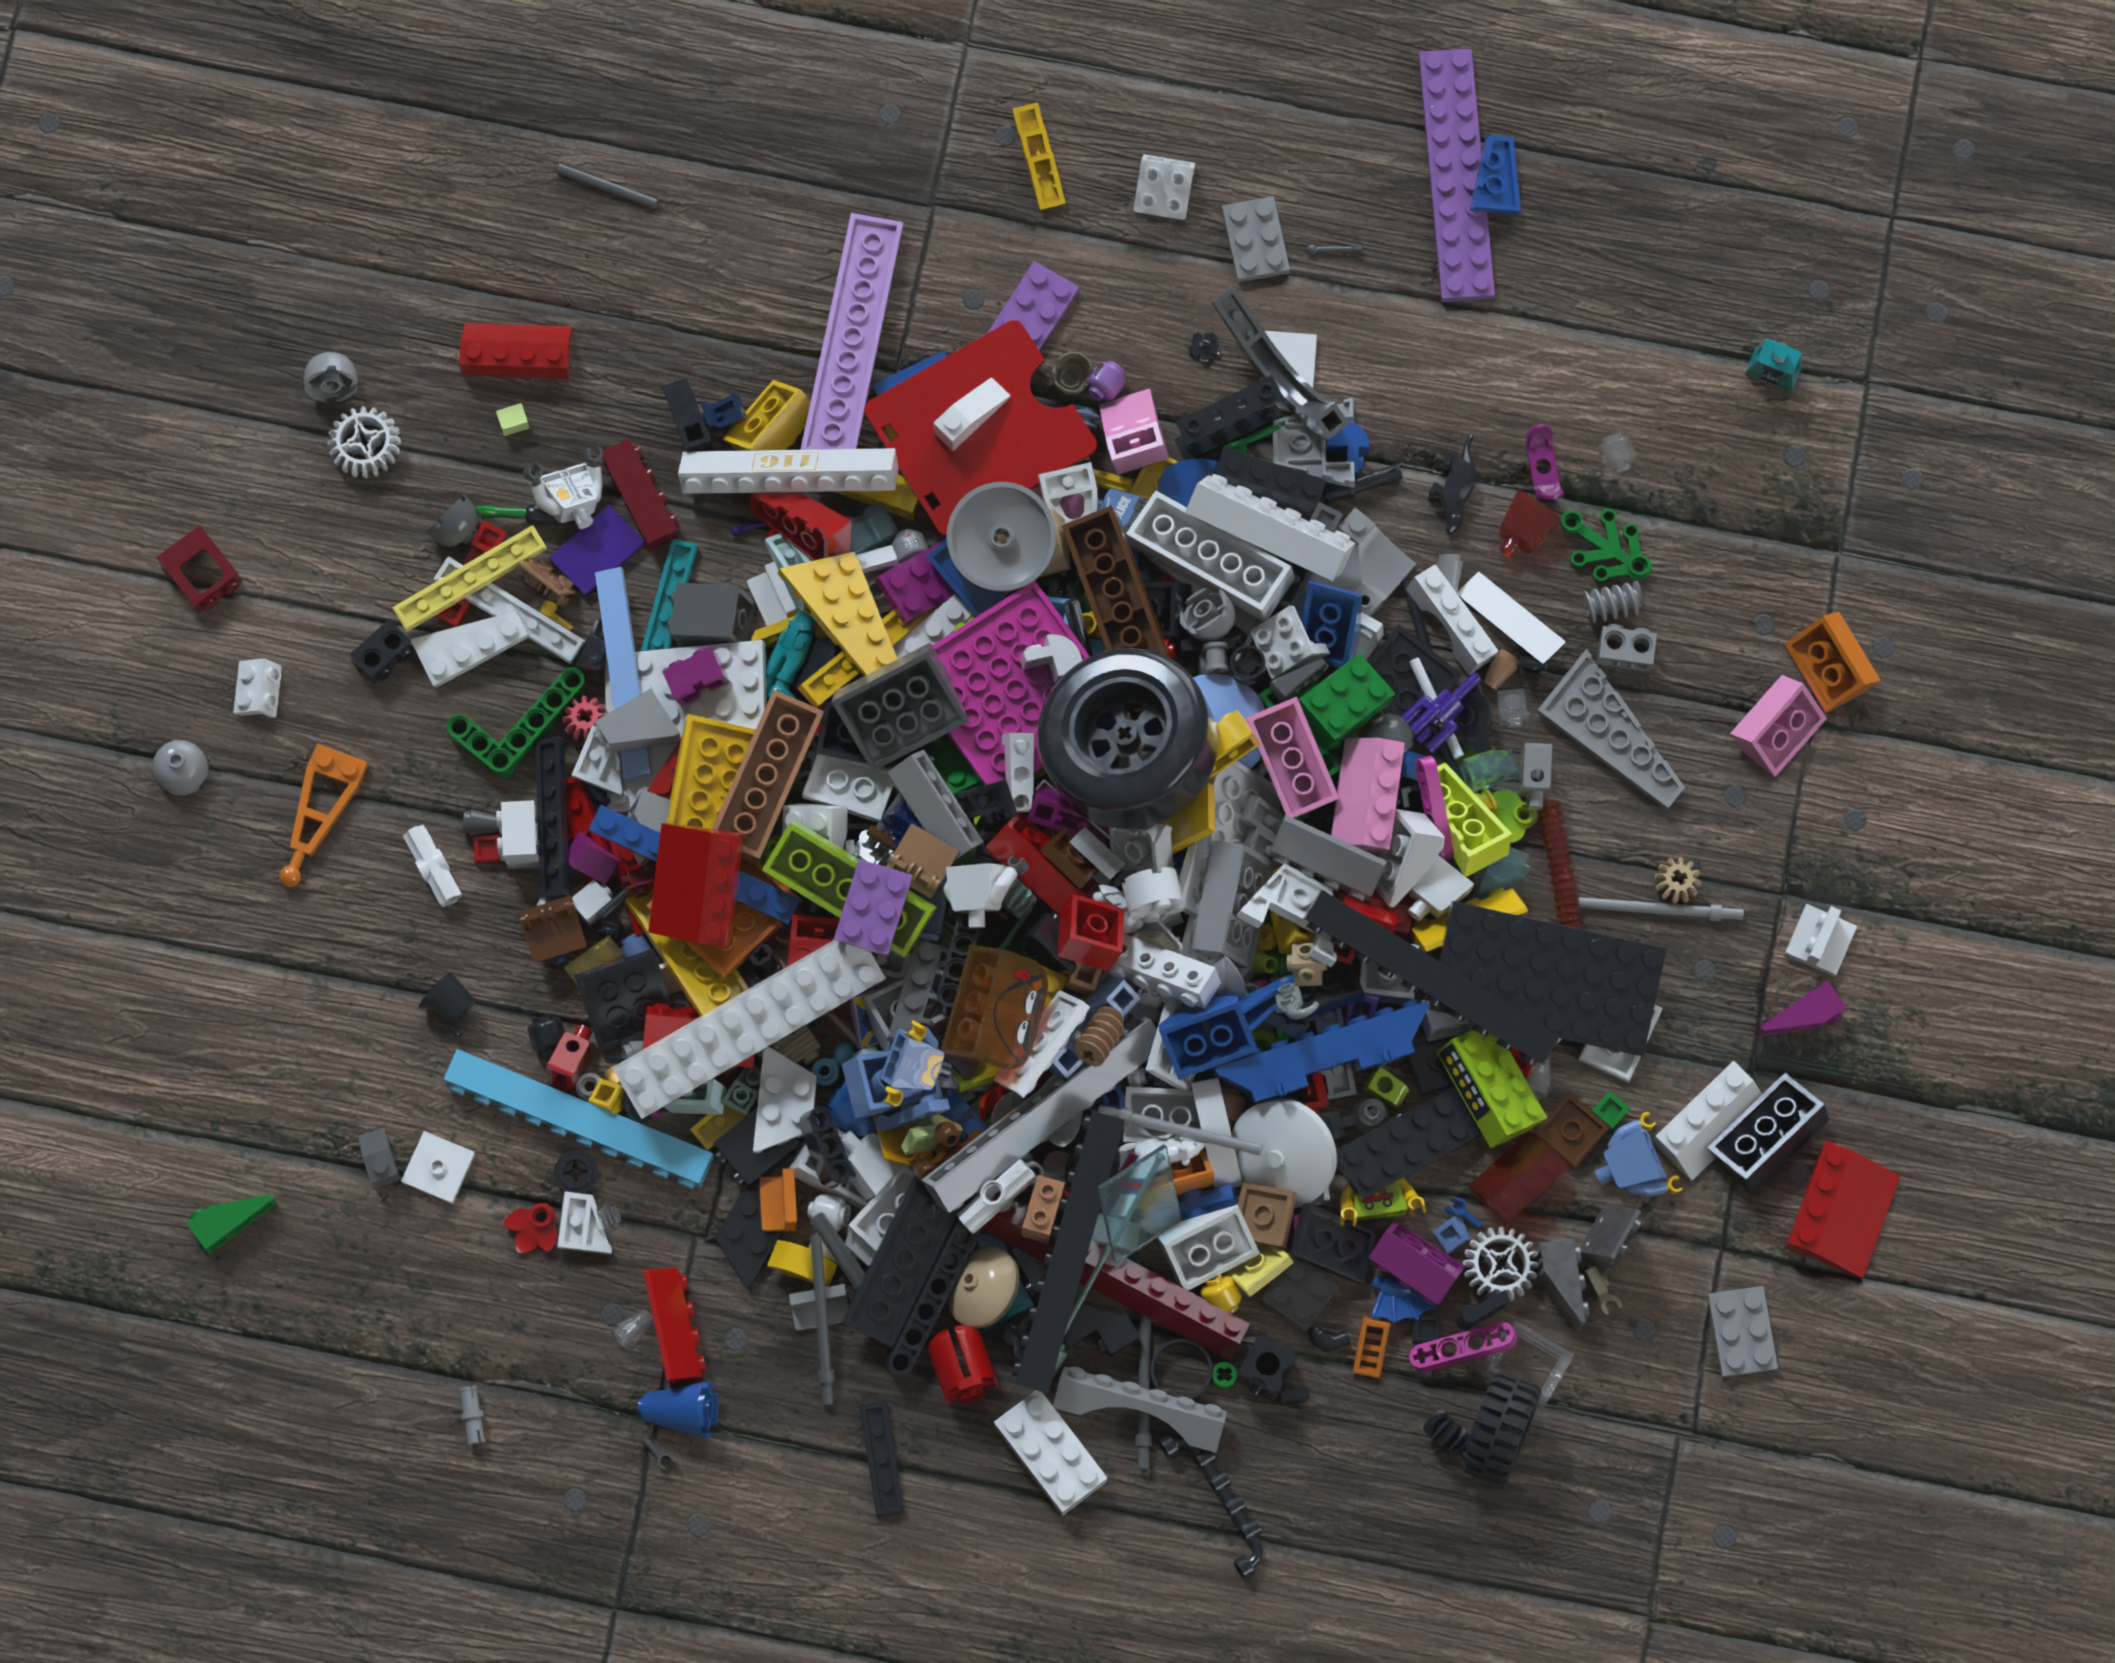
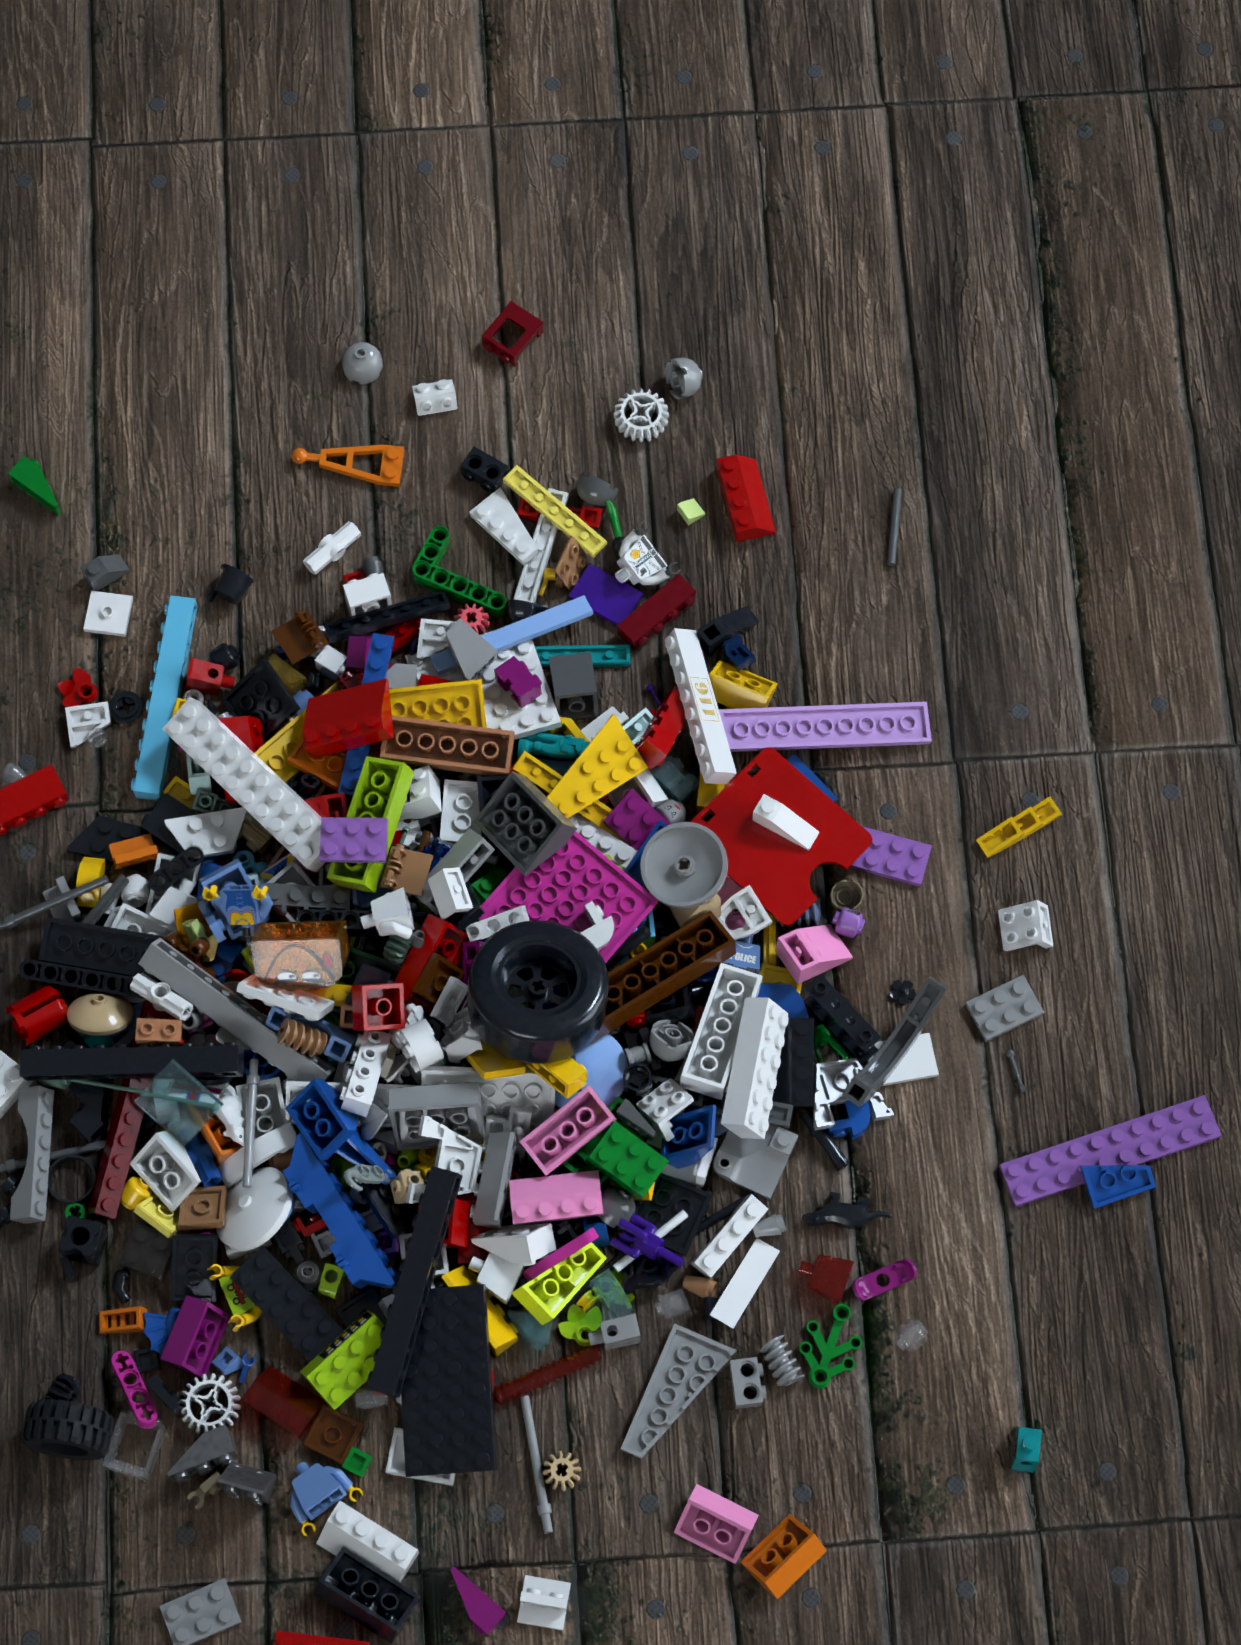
camera: 75 degrees right, 5 degrees down
(971, 812) = (450, 892): none -> white panel

